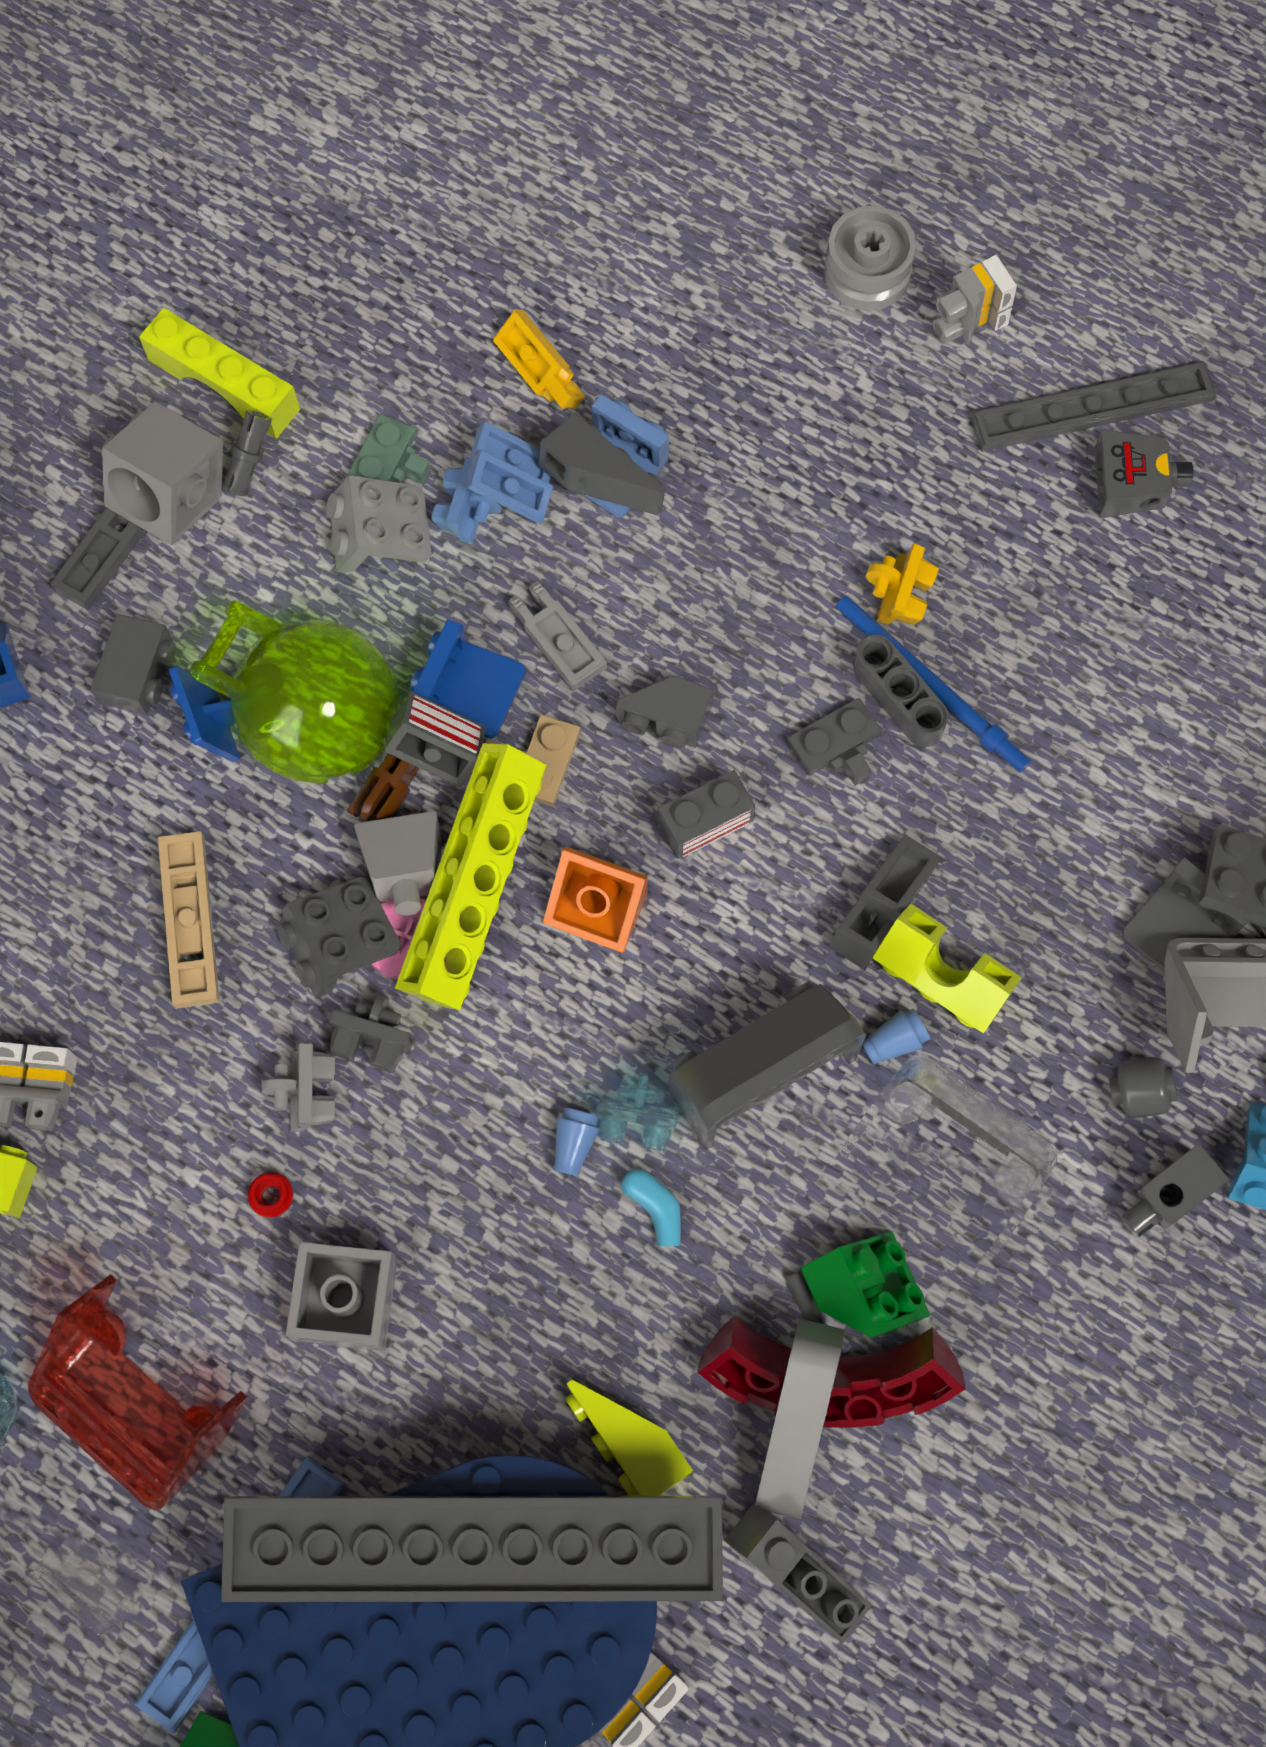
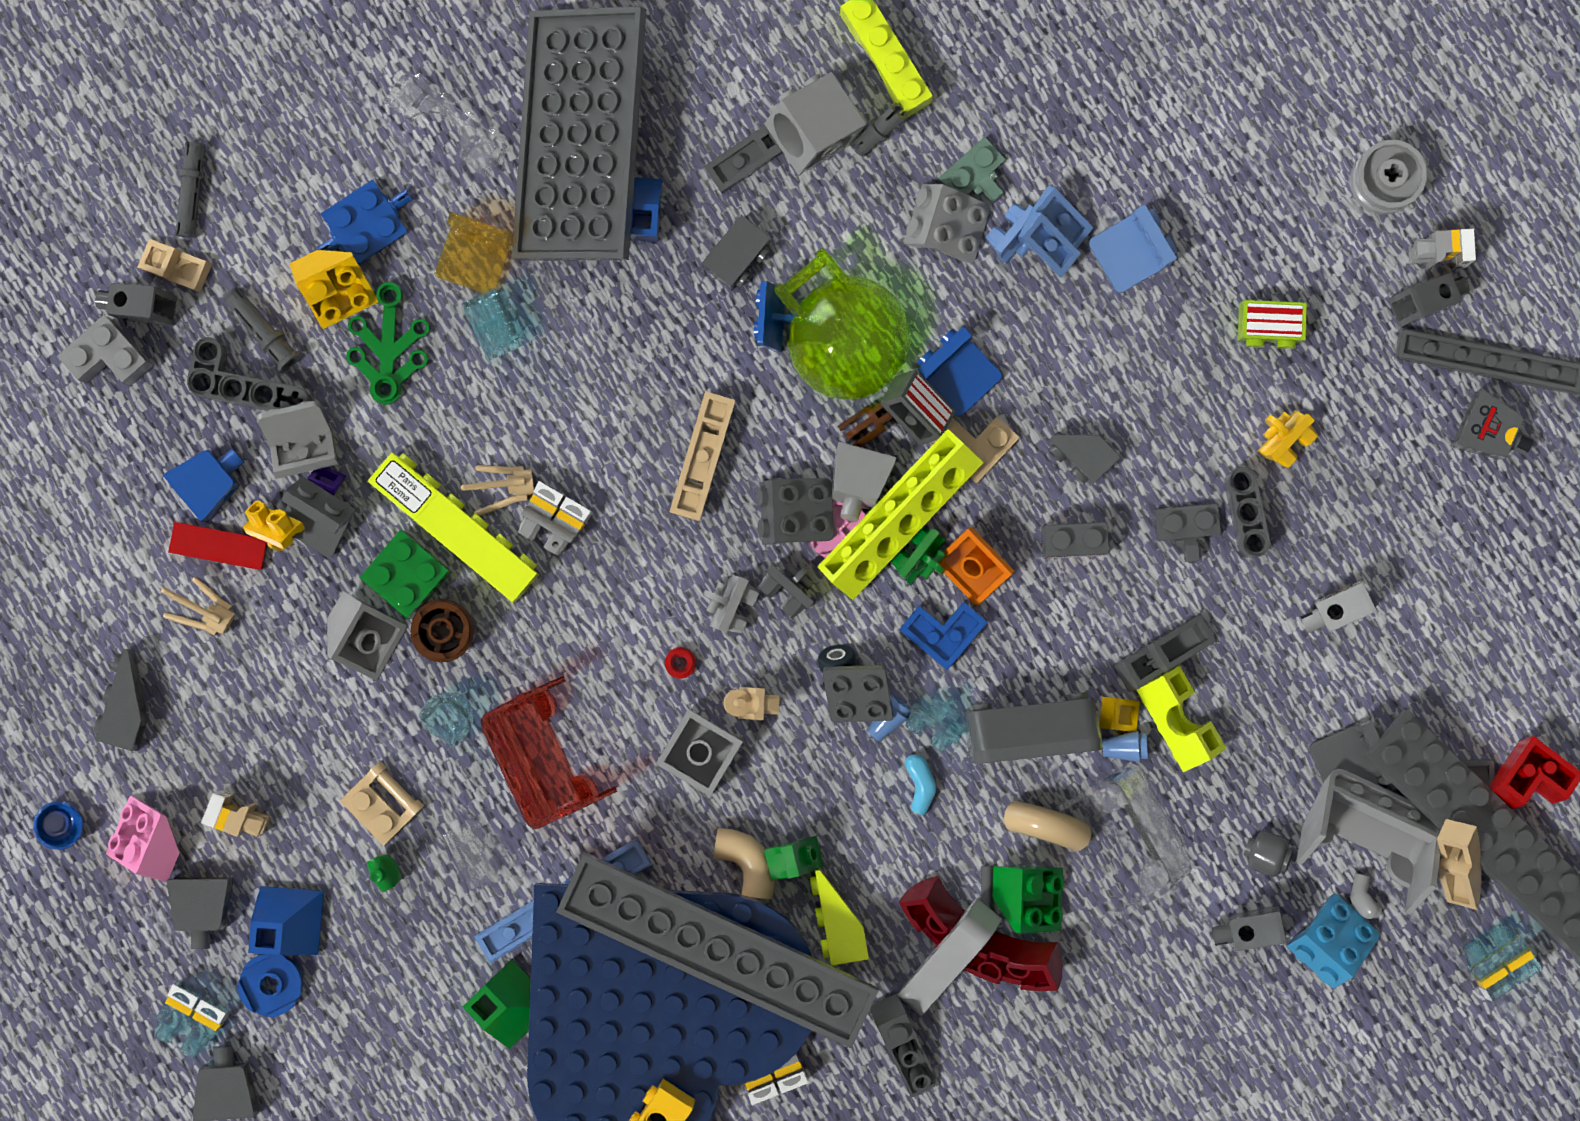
camera: 20 degrees right, 15 degrees up
(383, 1199) = (750, 703): none -> tan hips
(473, 1409) = (750, 856): none -> tan cylinder
(512, 1117) = (853, 690): none -> dark grey plate
(527, 921) = (924, 558): none -> green hips
(530, 1381) = (794, 858): none -> green brick
(537, 360) = (1114, 147): yellow hinge -> none
(559, 638) = (1034, 365): light grey hinge -> none
(595, 467) = (1113, 250): dark grey slope -> none
(597, 1013) = (945, 641): none -> blue plate
(818, 468) = (1272, 322): none -> brick
(844, 1179) = (1047, 825): none -> tan cylinder
(868, 1000) = (1119, 714): none -> yellow slope
(991, 349) = (1428, 298): none -> dark grey torso
(992, 737) = (1293, 572): blue bar -> none
(1080, 733) = (1354, 605): none -> light grey torso

